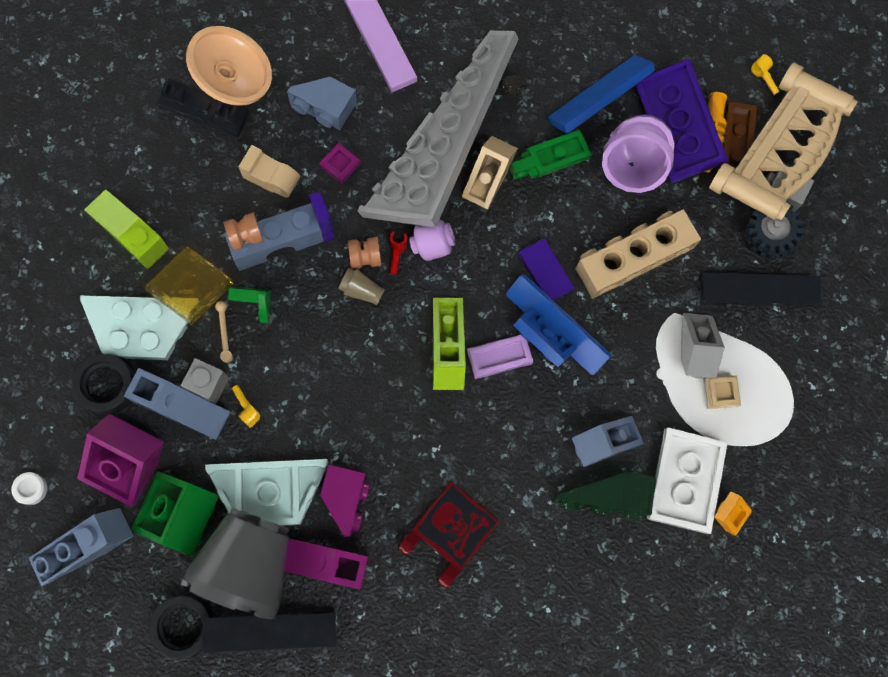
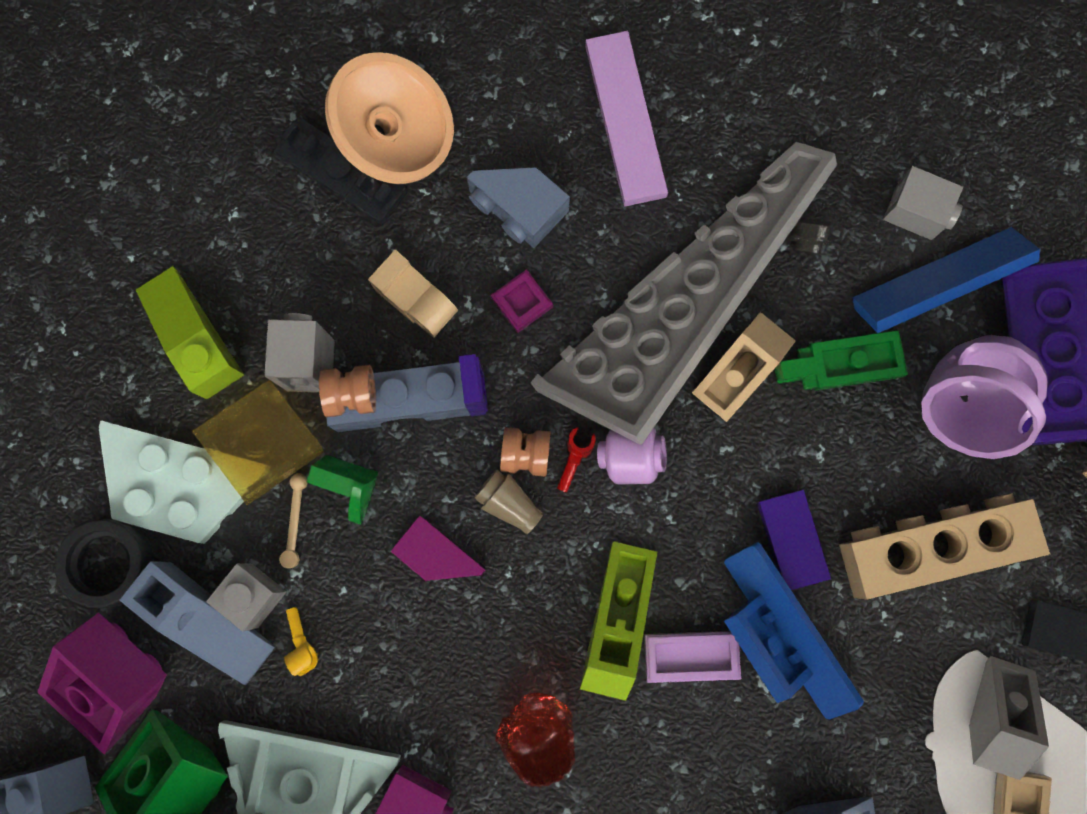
camera: 25 degrees right, 5 degrees up
(205, 222) = (297, 352): none -> light grey brick
(320, 331) = (433, 554): none -> magenta tile
(413, 423) = (538, 739): none -> clear red hair
(577, 51) = (924, 203): none -> light grey brick

